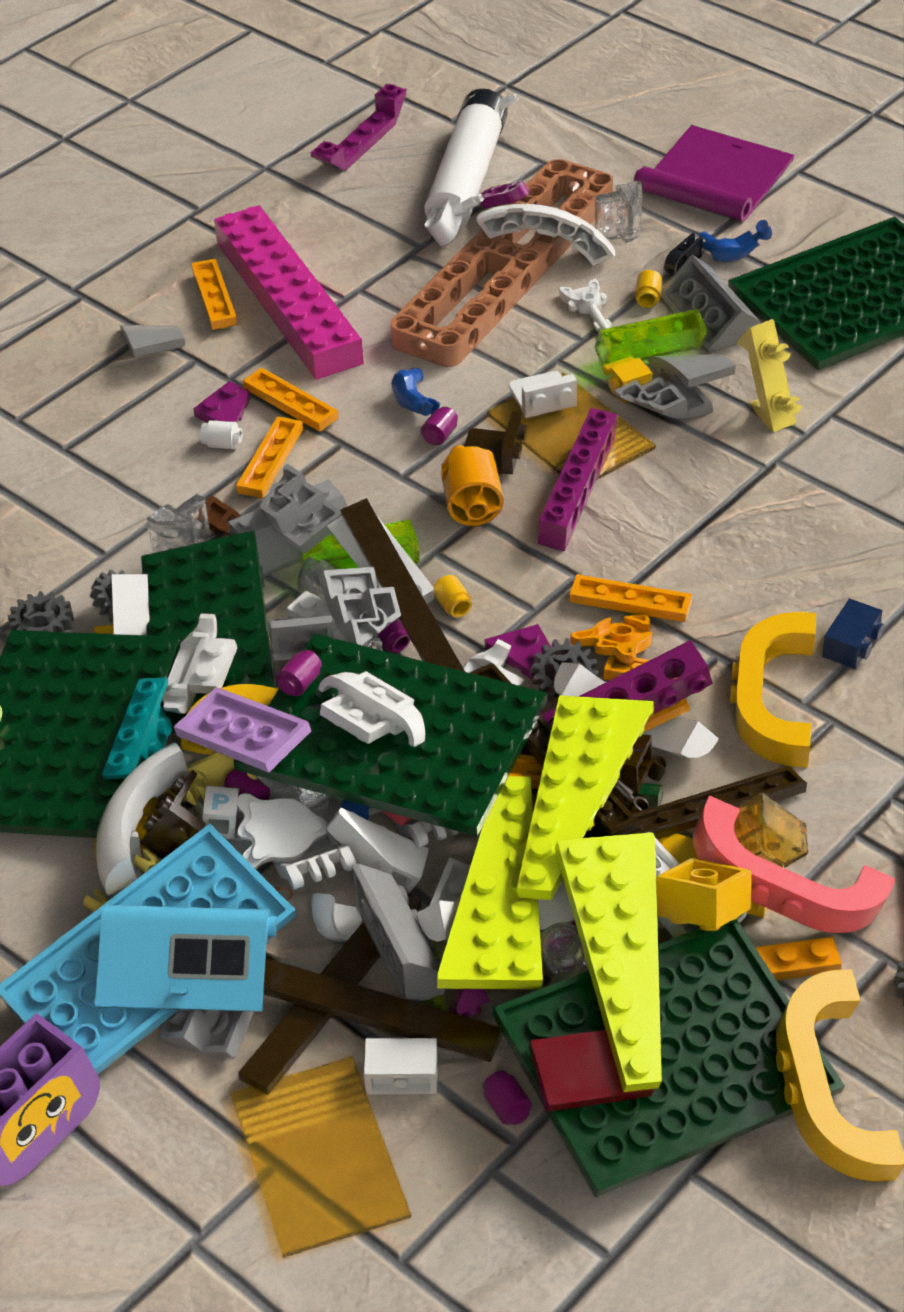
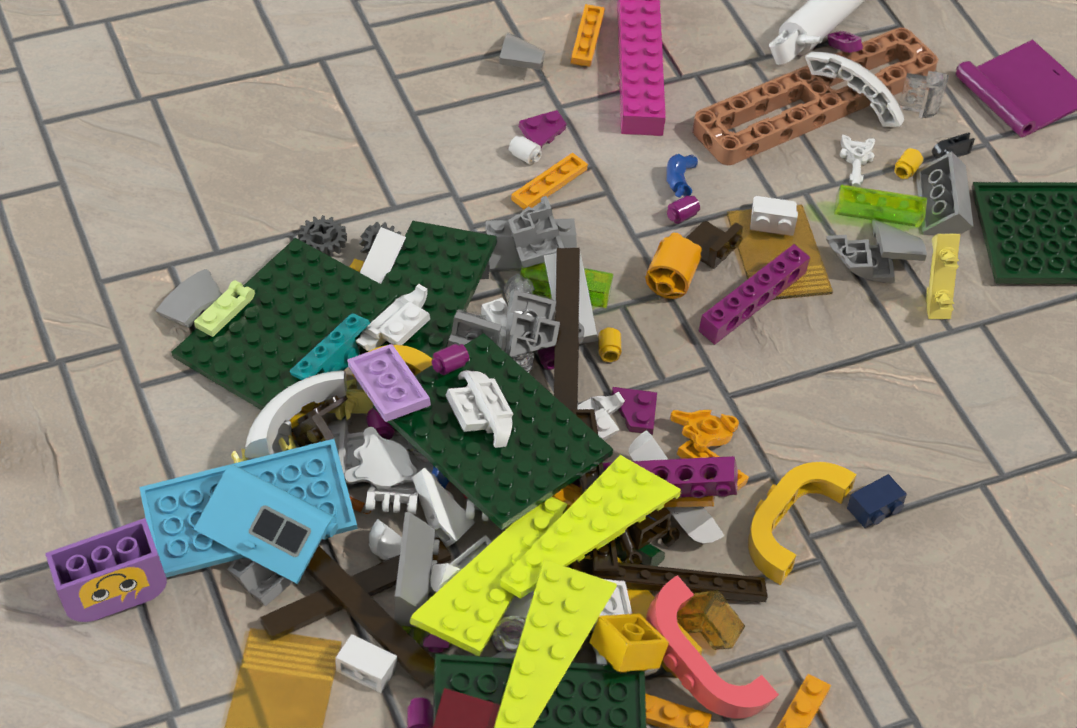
camera: 20 degrees right, 5 degrees up
(179, 526) = (450, 210): clear brick -> none
(219, 515) = (485, 210): reddish brown plate -> none
(221, 809) = (350, 432): white brick -> none
(290, 399) = (591, 142): light orange plate -> none
(549, 663) = (661, 427): dark grey gear -> none
(625, 372) = (846, 224): yellow brick -> none
(630, 598) = (735, 402): light orange plate -> none
(733, 249) = (999, 158): blue arm -> none

